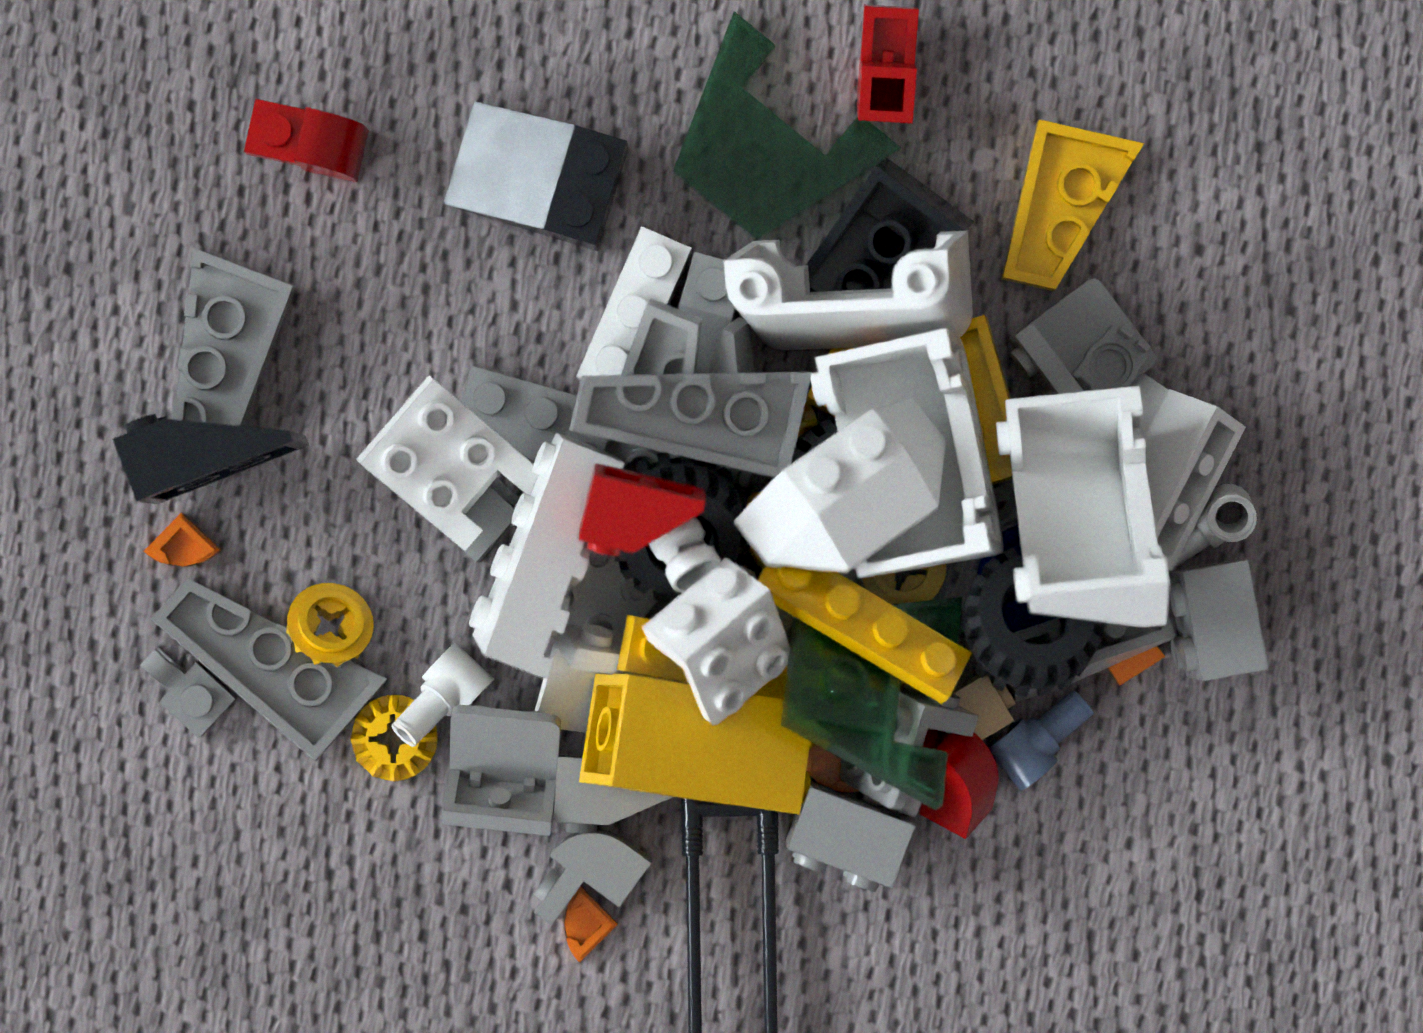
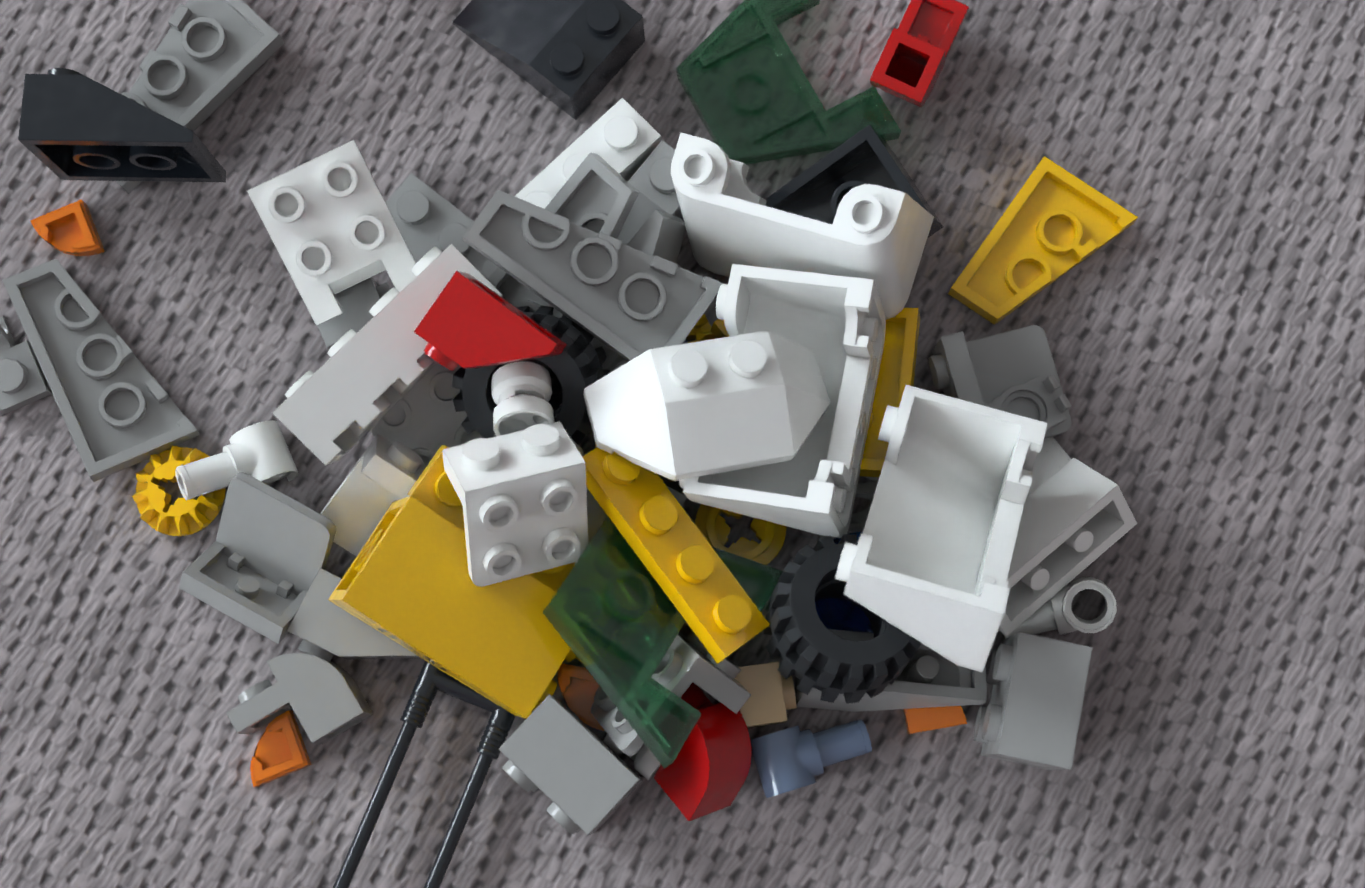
camera: 30 degrees right, 10 degrees down
(331, 602) = (179, 338): yellow gear -> none

